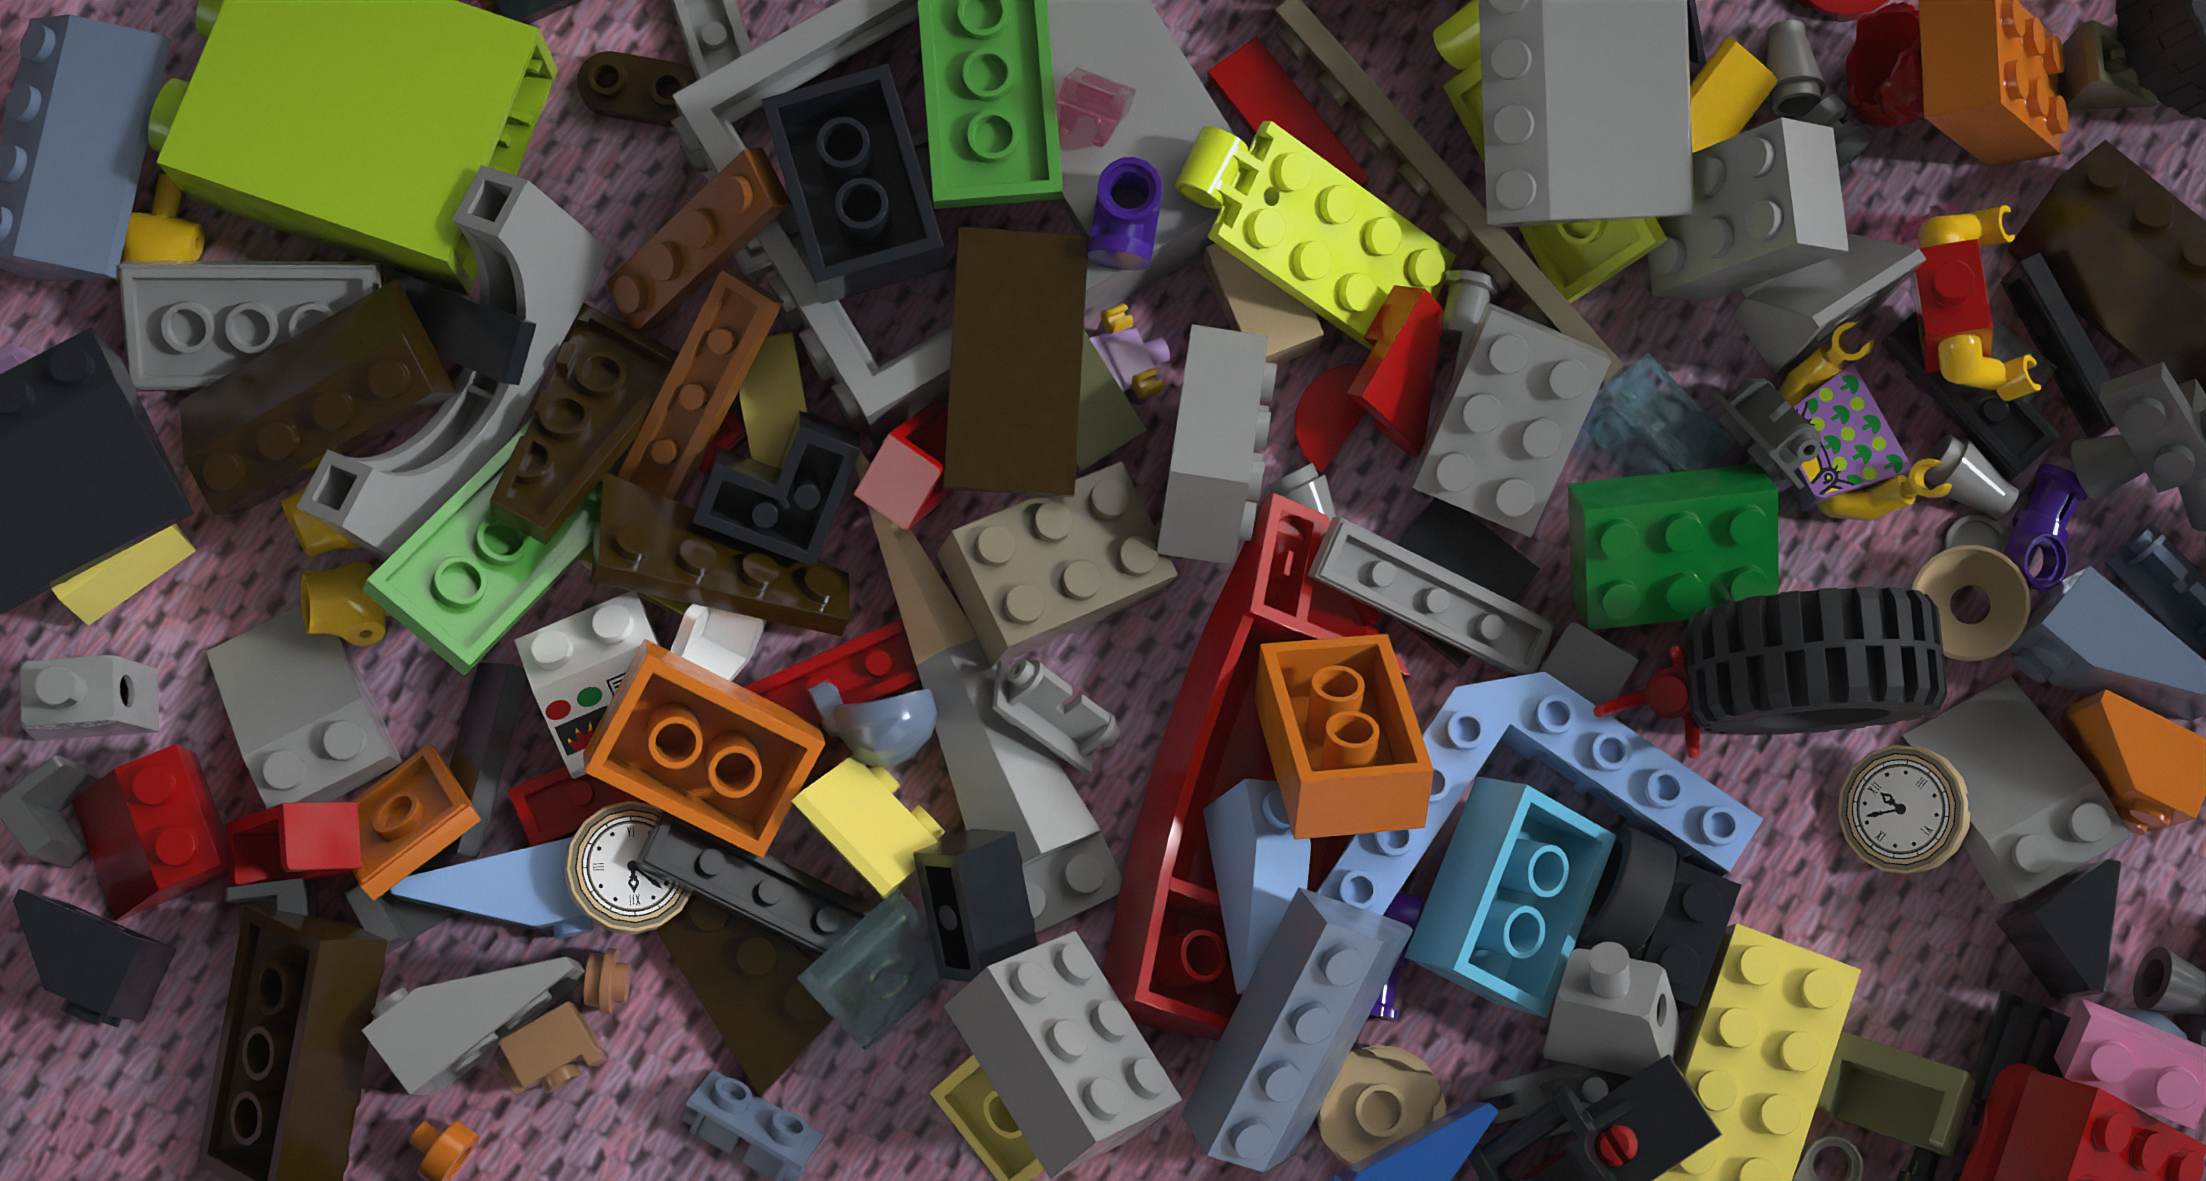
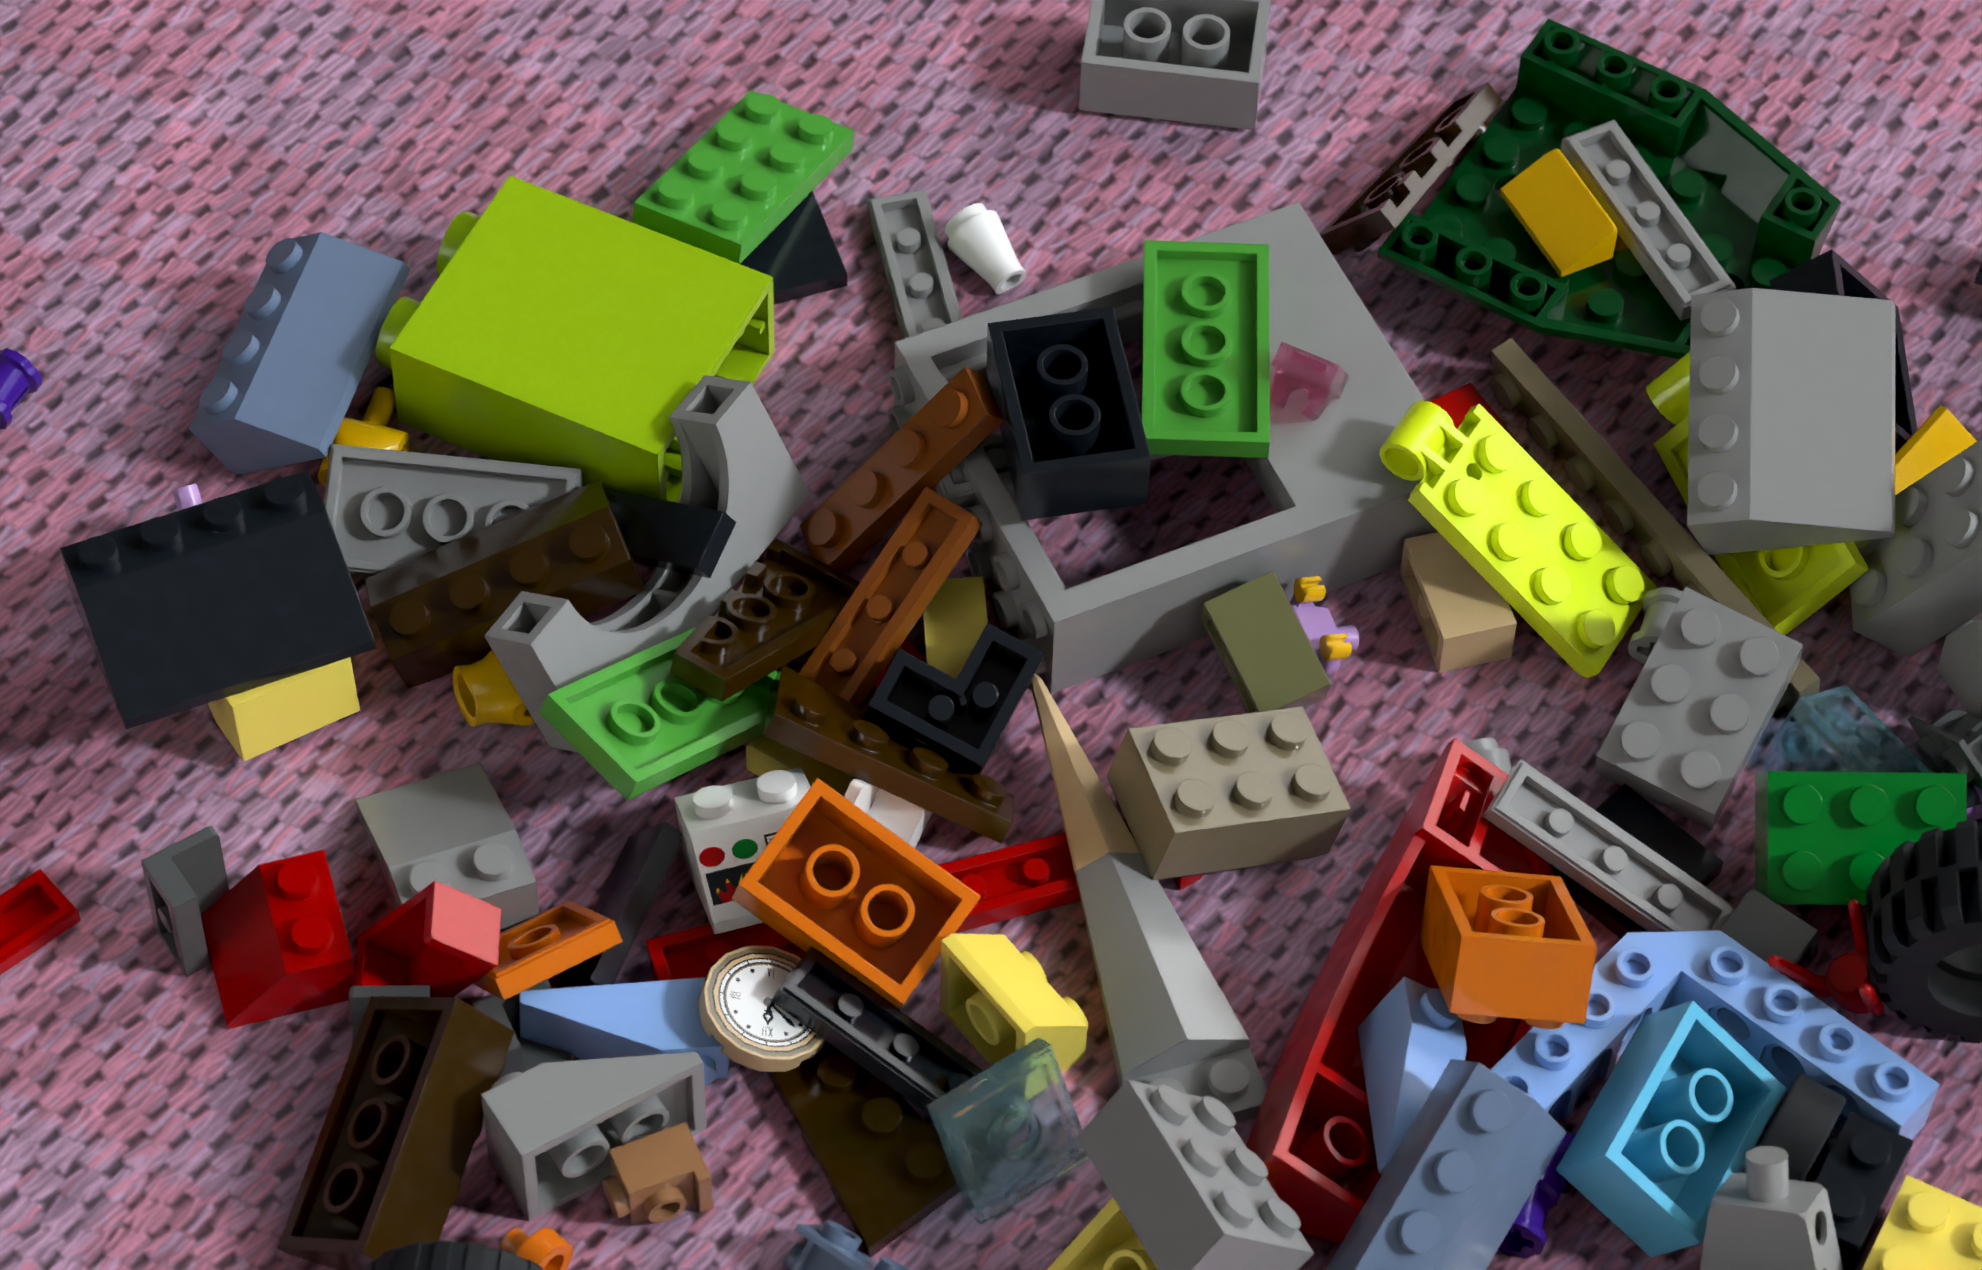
camera: 10 degrees right, 25 degrees down
(84, 700) = (244, 802): light grey torso -> none
(91, 961) = (218, 1030): black slope -> none
(337, 605) = (513, 764): yellow piece -> none
(606, 980) = (723, 1123): nougat plate -> none
(637, 89) = (849, 372): dark brown plate -> none
(878, 730) = (1034, 906): sand blue piece -> none
(909, 469) = (1100, 687): panel -> none
(975, 901) = (1105, 1045): black brick -> none
(1015, 362) = (1207, 589): dark brown tile -> none
(1033, 700) = (1193, 903): light grey hinge -> none
(1121, 235) = (1329, 469): dark purple piece -> none
(1215, 443) = (1400, 692): light grey brick -> none
(1327, 416) = (1525, 703): red tile -> none
(1402, 366) = (1594, 660): red slope -> none

